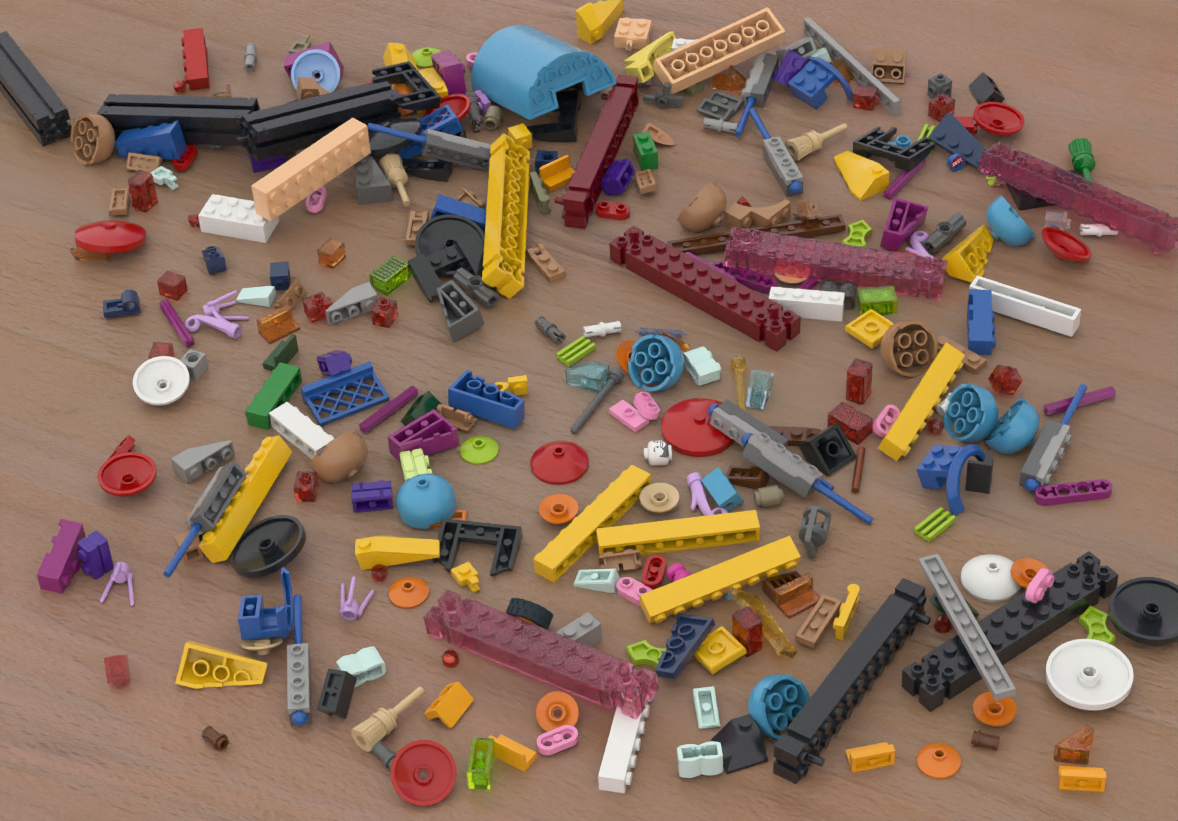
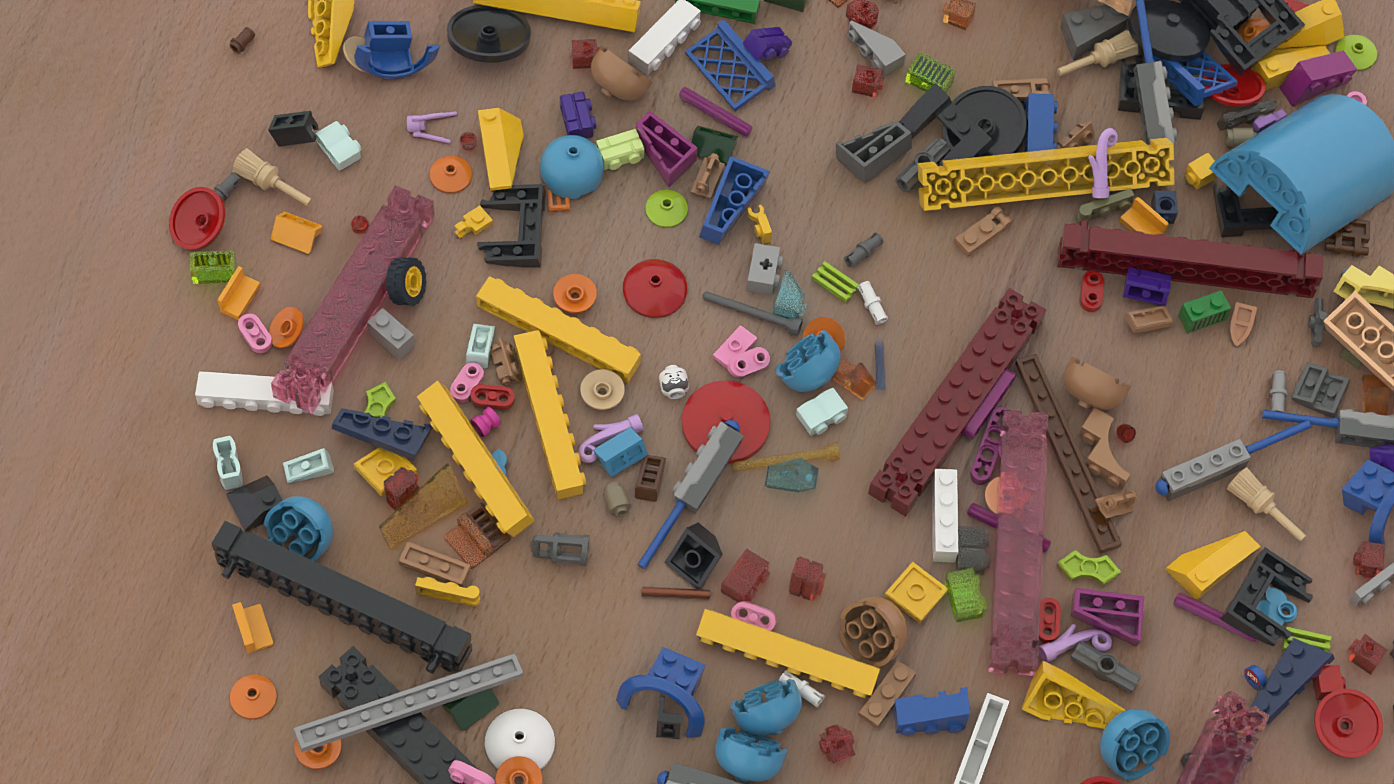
camera: 75 degrees right, 20 degrees up
(299, 673) = (323, 92): light grey piece -> none
(529, 184) = (1099, 164): none -> lavender plant
(557, 389) = (764, 258): none -> light grey brick
(791, 470) = (647, 517): piece -> none
(795, 434) = (722, 517): reddish brown hinge -> none
(932, 429) = (753, 671): clear red hinge -> none
(932, 522) = (581, 666): lime tile -> none
(985, 740) = (277, 739): reddish brown pin -> none

